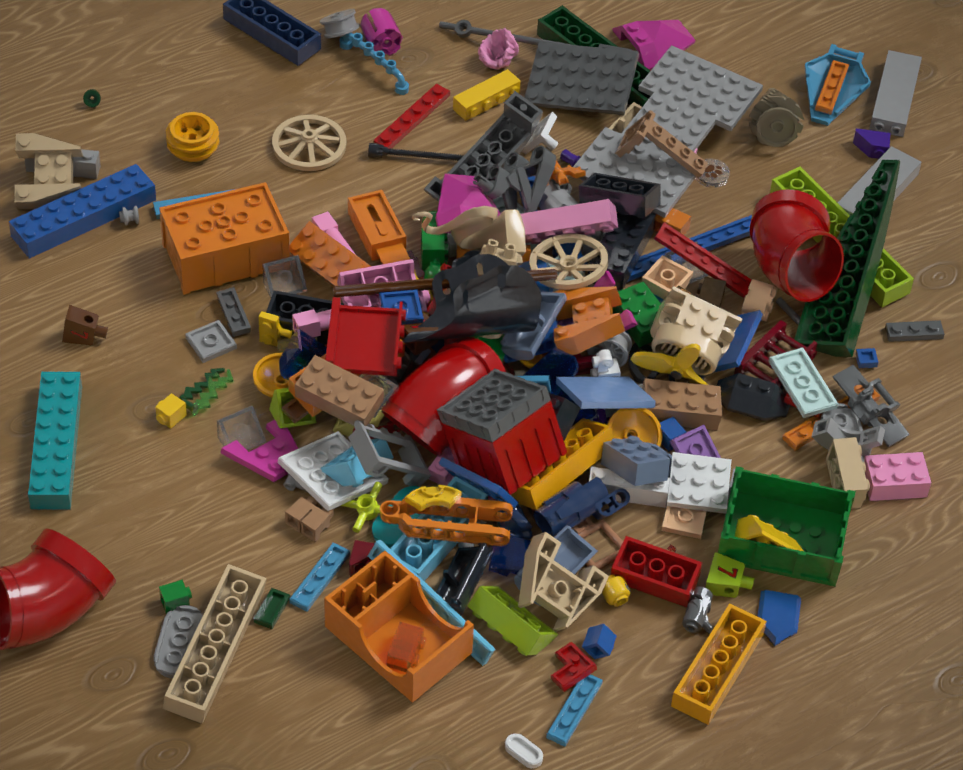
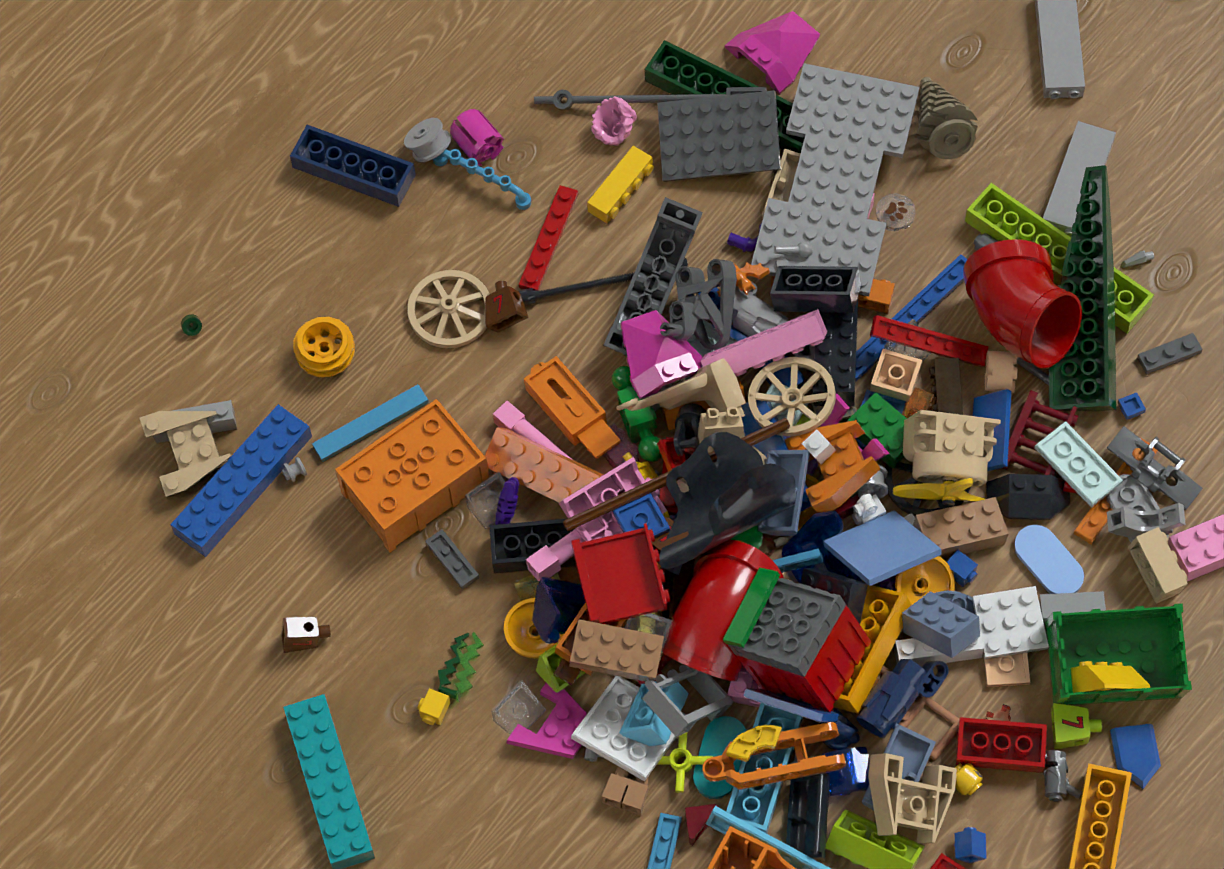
camera: 10 degrees left, 15 degrees up
(211, 341) = (441, 602): light grey tile -> none
(270, 329) = (503, 574): yellow plate -> none
(298, 277) = (507, 502): none -> dark purple hinge
(353, 150) = (504, 307): none -> reddish brown torso
(468, 385) = (751, 607): none -> green tile
(541, 135) = (704, 227): white tile -> none
(576, 297) = (818, 446): none -> white brick
(620, 166) = (803, 249): none -> light grey bar
(664, 140) = (816, 201): medium nougat bracket -> none
(695, 443) = (992, 576): medium lavender tile -> none
(751, 447) = (1048, 560): none -> light blue tile
(832, 87) = (989, 57): orange tile -> none
(853, 86) = (990, 50): dark azure windscreen -> none
(871, 142) = (1056, 120): dark purple slope -> none
(910, 257) = (1138, 258): none -> light grey bar

